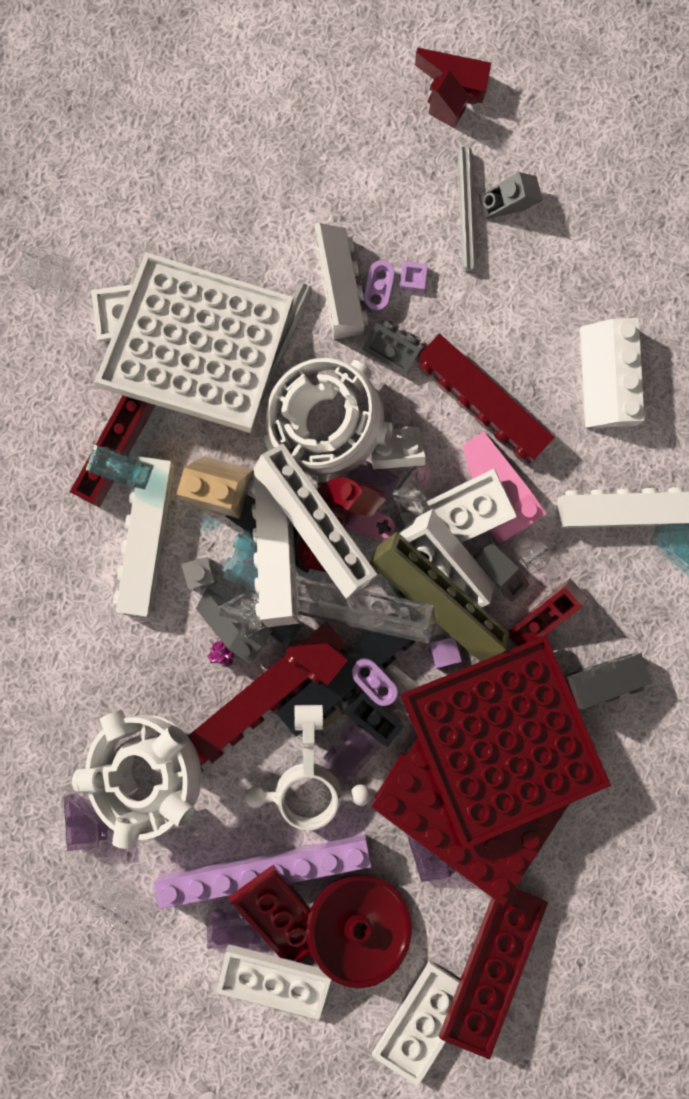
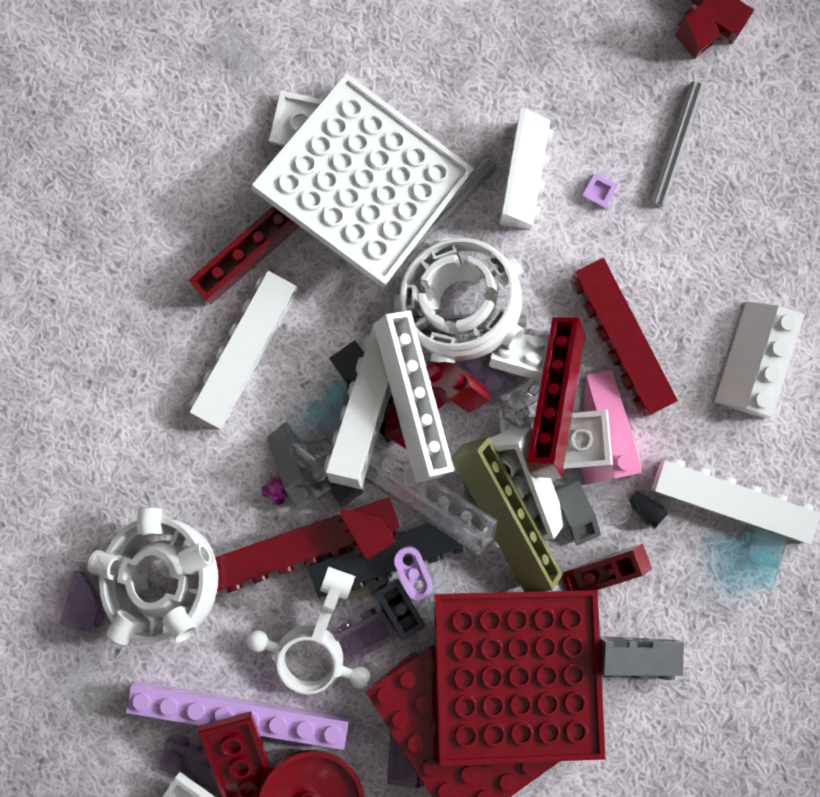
camera: 25 degrees right, 0 degrees up
(119, 467) = (245, 275): clear light blue slope -> none
(199, 573) = (283, 404): light grey brick -> none
(215, 486) = (331, 326): tan slope -> none
(368, 525) = (464, 420): bright pink piece -> none
(378, 287) = (560, 189): lavender plate -> none
(393, 346) = (554, 252): dark grey bracket -> none
(445, 475) = (556, 398): none -> dark red brick
(445, 652) = (493, 570): lavender tile -> none
(511, 196) = (725, 147): dark grey slope -> none
(564, 546) = (648, 509): none -> black cone

